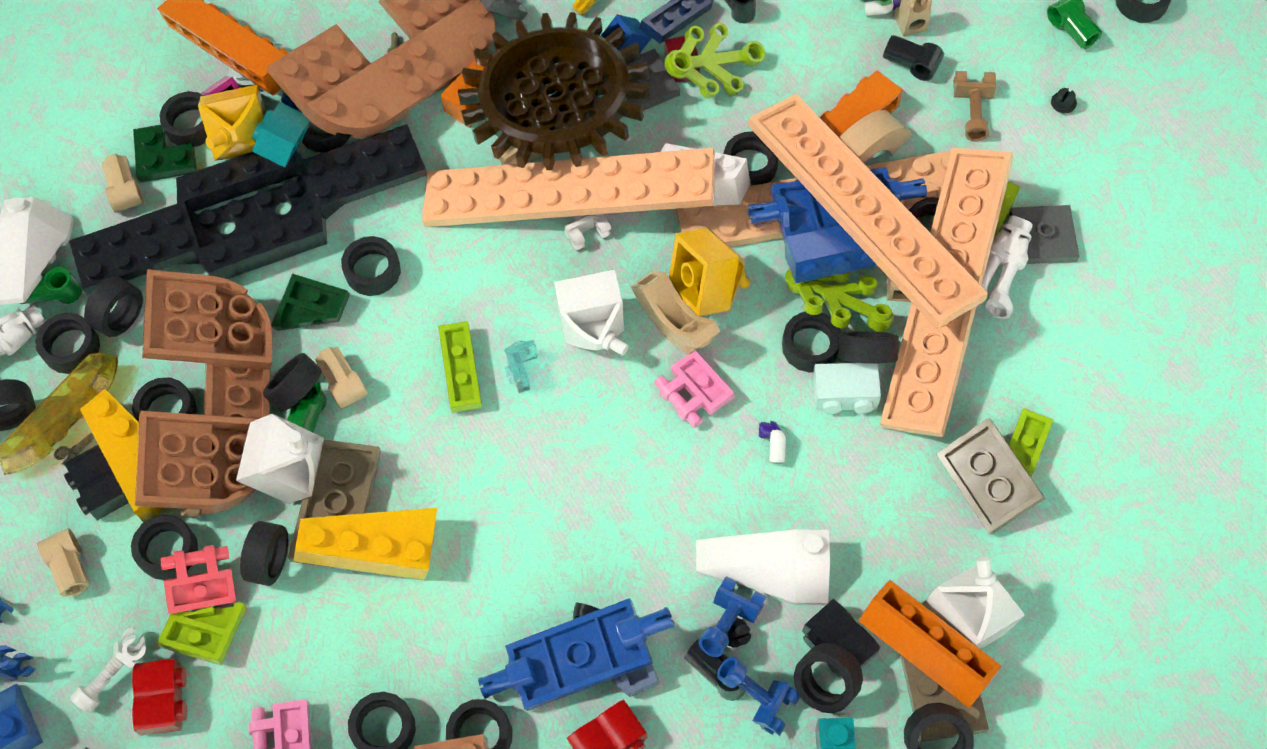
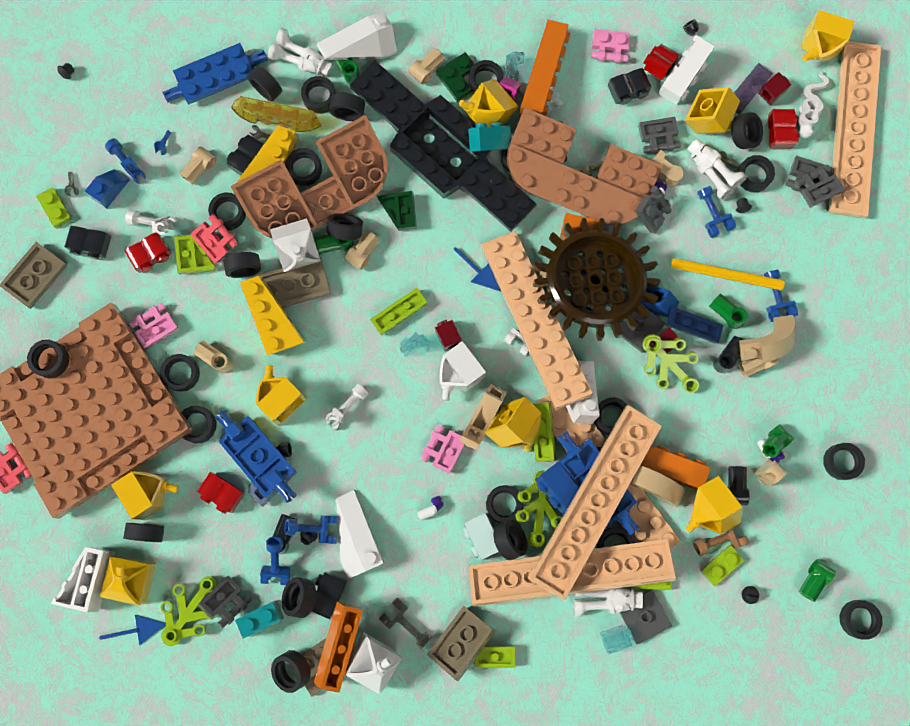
camera: 60 degrees right, 15 degrees up
(191, 79) = (512, 61): none -> clear light blue bracket
(361, 248) = (438, 216): black tyre -> none
(381, 664) = (212, 356): none -> tan piece
(470, 237) = (484, 277): none -> blue piece
(499, 582) = (277, 397): none -> yellow piece
(530, 314) = (447, 334): none -> dark red brick
(573, 508) = (338, 416): none -> white bar
(757, 256) = (544, 443): none -> lime plate
(933, 80) = (715, 508): none -> yellow piece
(962, 530) = (422, 638): none -> clear smoke bar
(1011, 118) = (722, 565): none -> lime plate
(1062, 277) = (616, 639): none -> clear light blue brick

